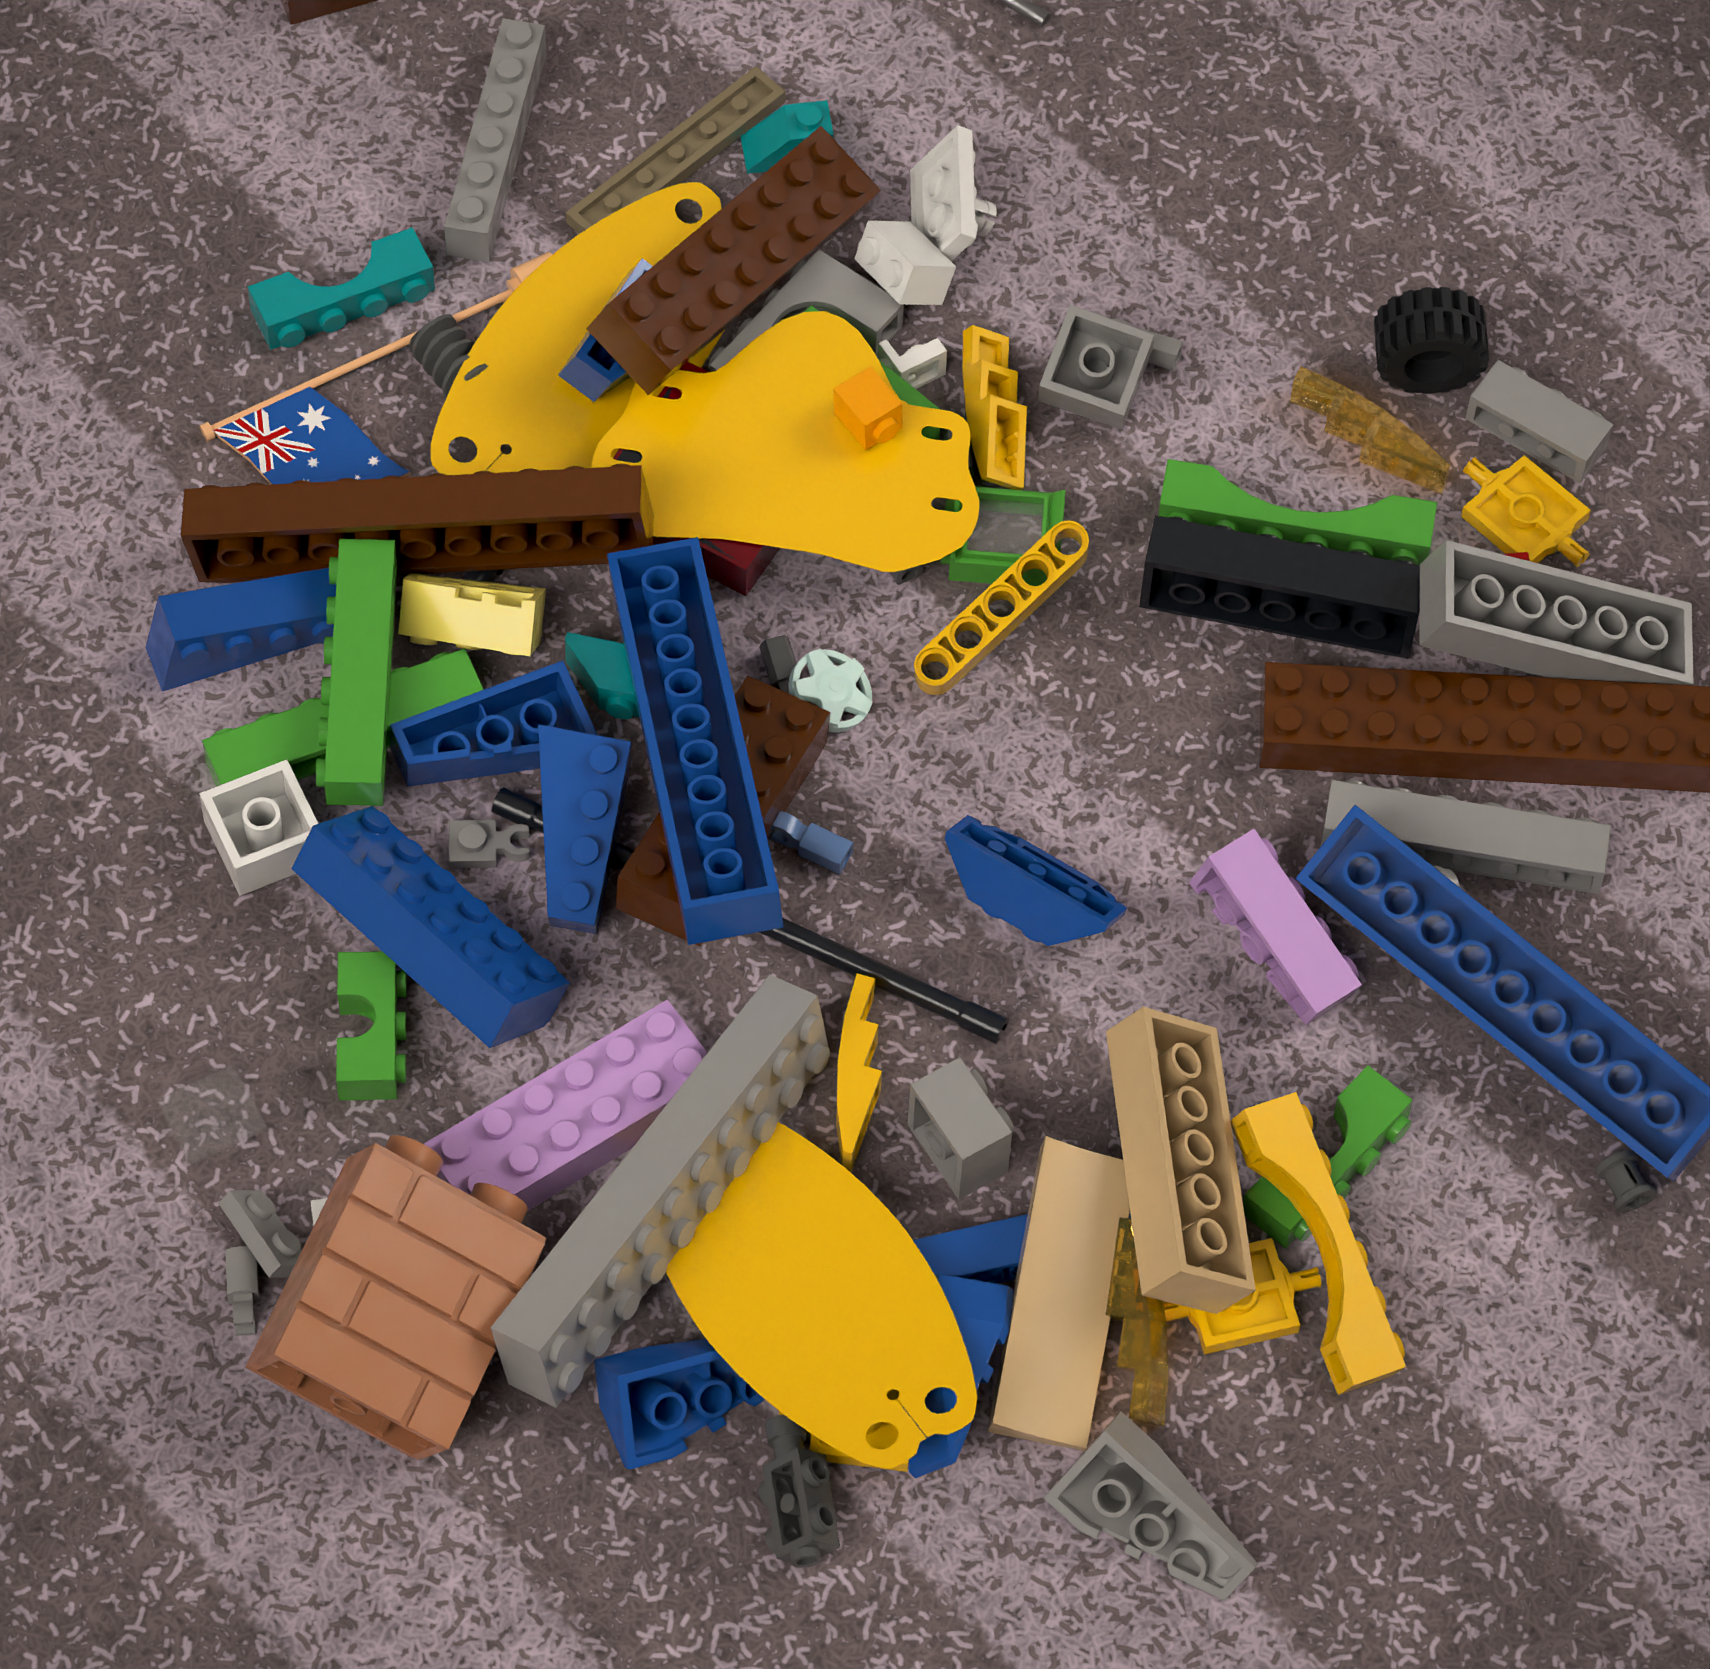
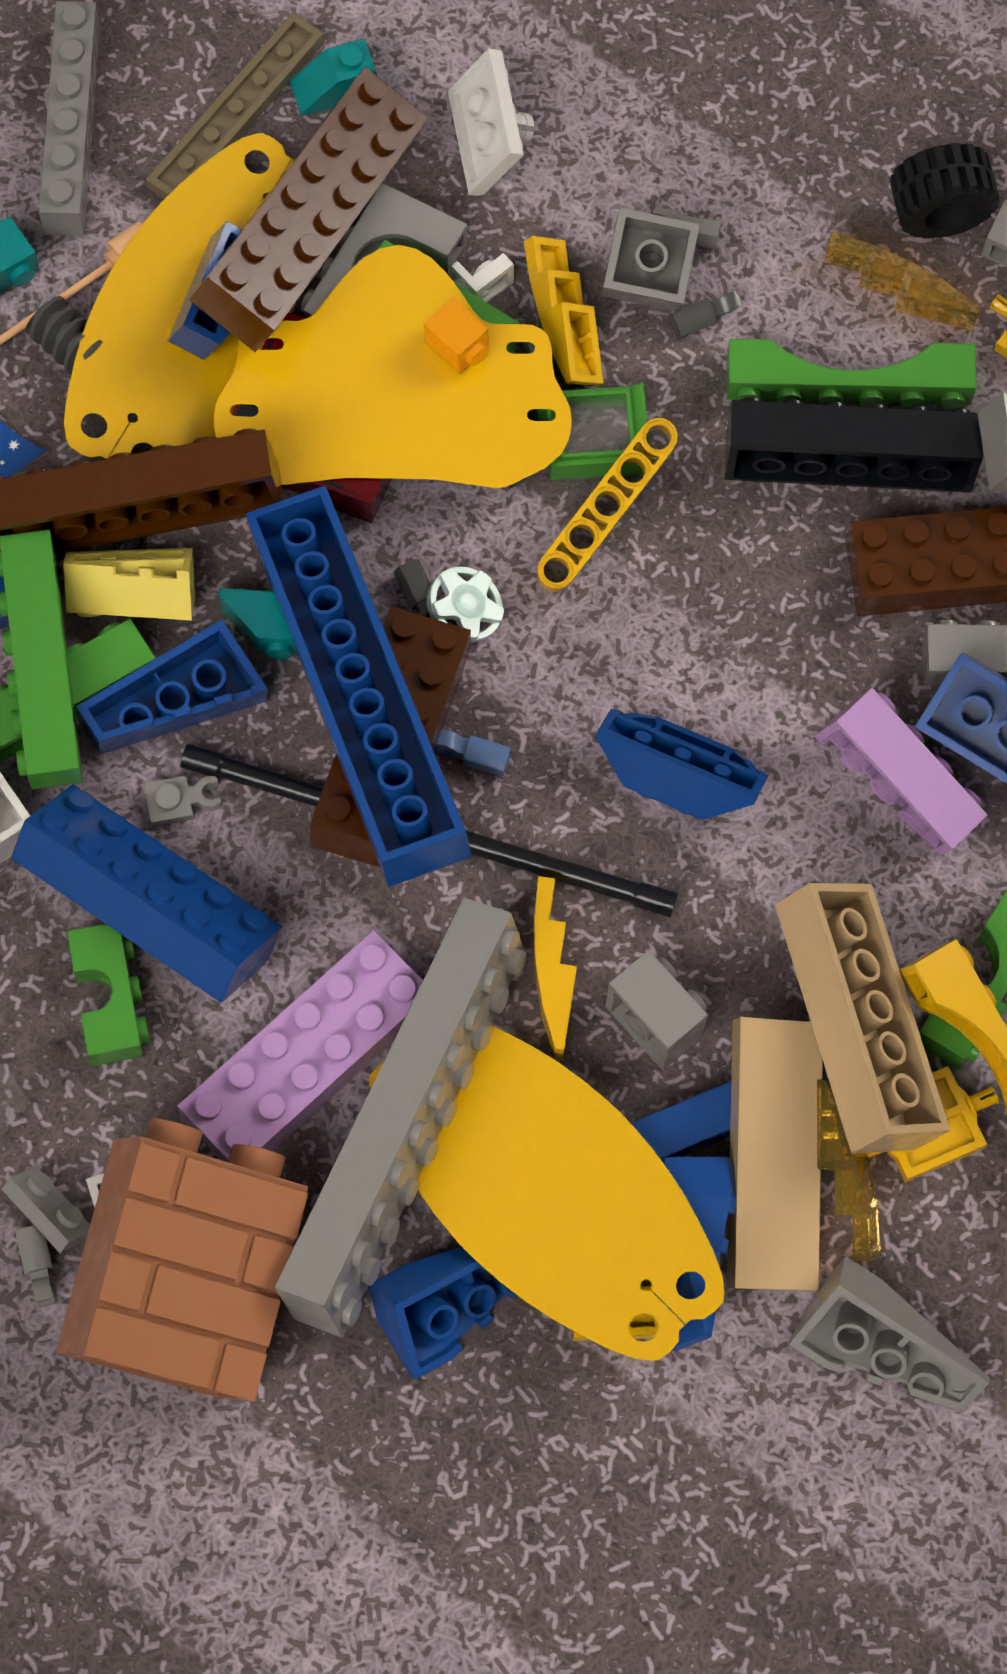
camera: 10 degrees left, 10 degrees up
(581, 809) = (263, 760): blue wedge -> none
(797, 1497) = (572, 1384): dark grey brick -> none
(905, 262) = (461, 184): white brick -> none
(1146, 433) = (702, 314): none -> dark grey bar

